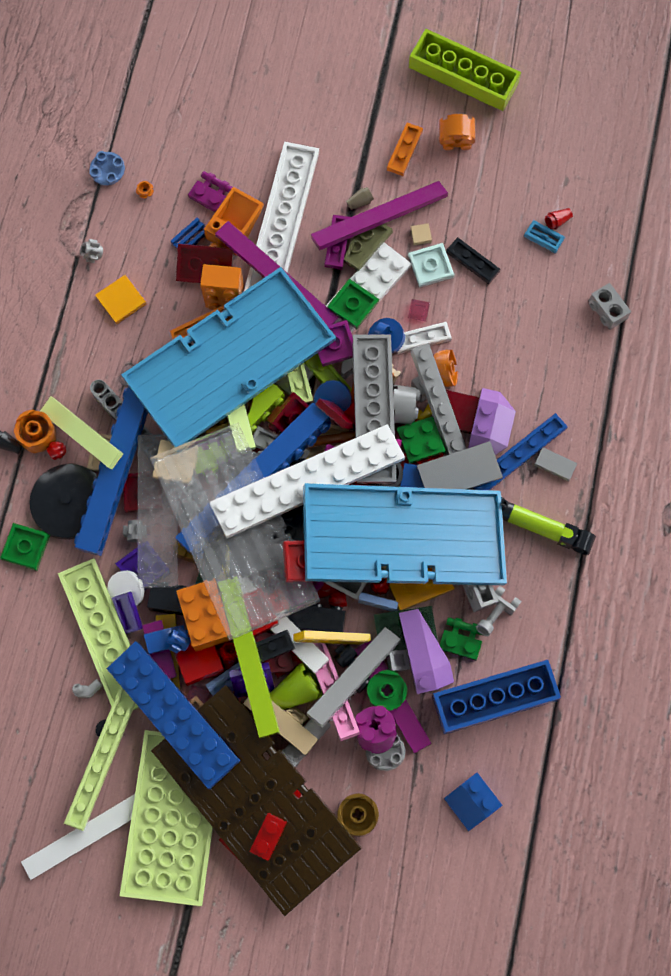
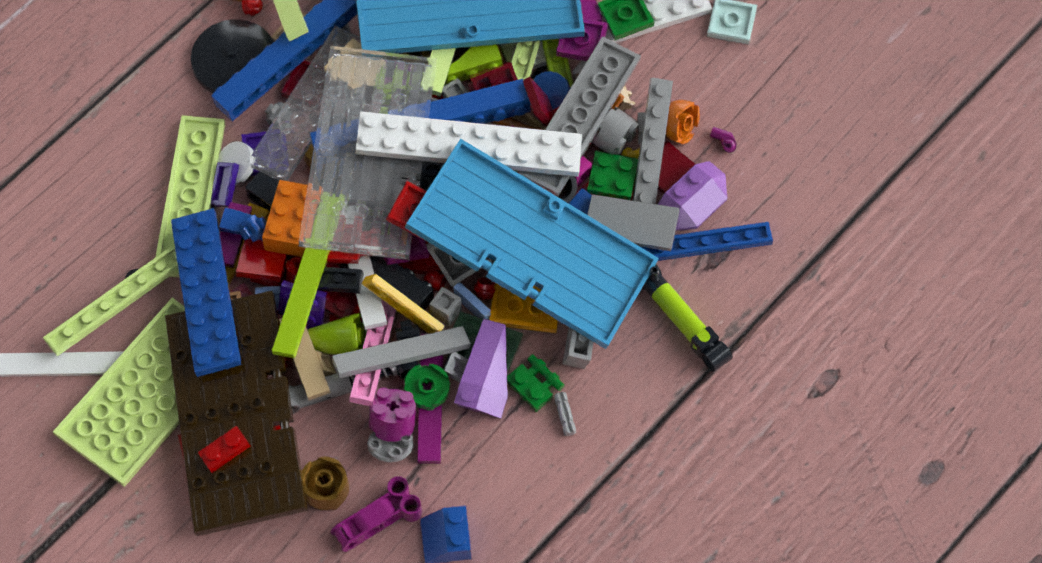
camera: 30 degrees right, 10 degrees down
(25, 546) = (167, 77): green tile -> none
(83, 691) = (140, 236): light grey arm -> none
(361, 617) = (445, 306): none -> light grey brick
(391, 327) = (649, 63): blue tile -> none
(411, 817) = (378, 515): none -> magenta piece
(419, 310) = (691, 56): clear pink tile -> none
(431, 334) = (683, 84): white tile -> none
(473, 260) = (778, 37): black tile -> none
(483, 362) = (727, 139): none -> magenta arm
(486, 627) = (563, 379): light grey bar -> none
(496, 697) = (531, 450): blue brick -> none
(499, 651) = (565, 413): none -> light grey axle
(541, 238) = (863, 58): dark azure tile -> none
(555, 464) = (737, 270): light grey tile -> none
(557, 218) = (892, 39): red cone -> none
(613, 304) = (896, 148): light grey brick -> none

